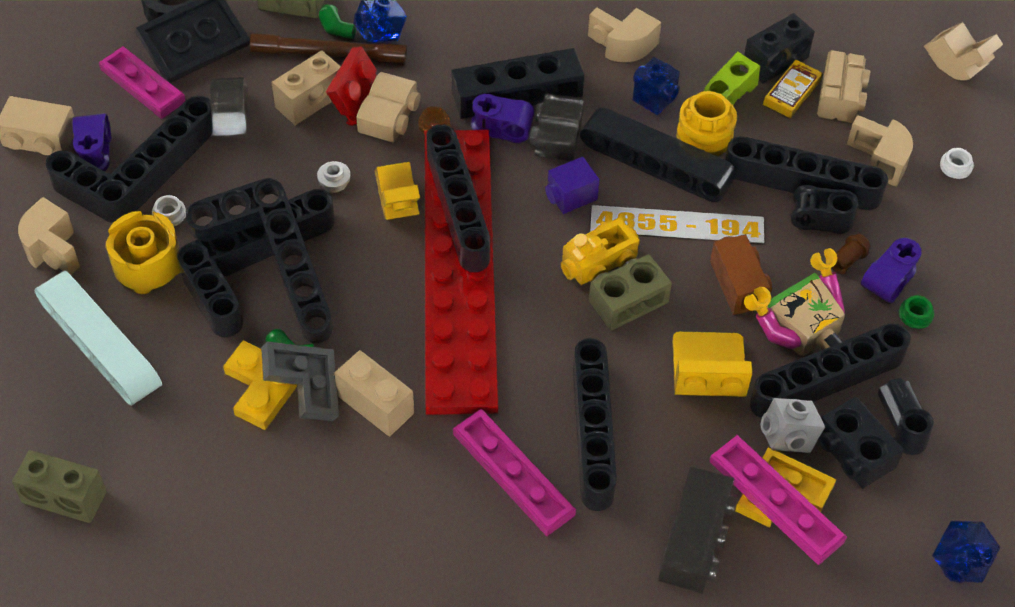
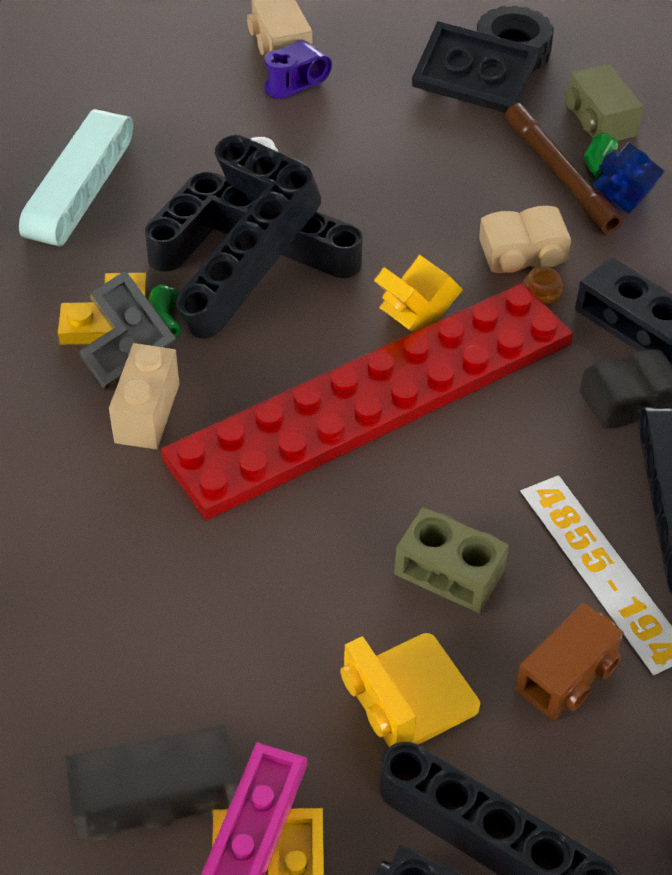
camera: 60 degrees right, 5 degrees down
(44, 236) = (164, 89): tan brick -> none
(141, 172) = (302, 114): black beam -> none
(142, 82) = (396, 70): dark pink tile -> none
(143, 251) = (185, 148): yellow brick -> none
(229, 106) = (410, 124): clear smoke brick -> none
(304, 87) = (490, 170): tan brick -> none
(333, 176) = (402, 245): white plate -> none
(352, 84) = (522, 190): red plate -> none
(458, 198) = (437, 338): black beam -> none
(506, 117) = (598, 330): dark purple piece -> none
(514, 472) = (131, 570): dark pink tile -> none
(572, 185) = (558, 437): dark purple brick -> none
(594, 437) = (227, 626): black beam -> none
(599, 251) = (485, 501): yellow brick -> none
(792, 425) = (367, 817): light grey brick -> none
(804, 314) = (564, 762): torso -> none

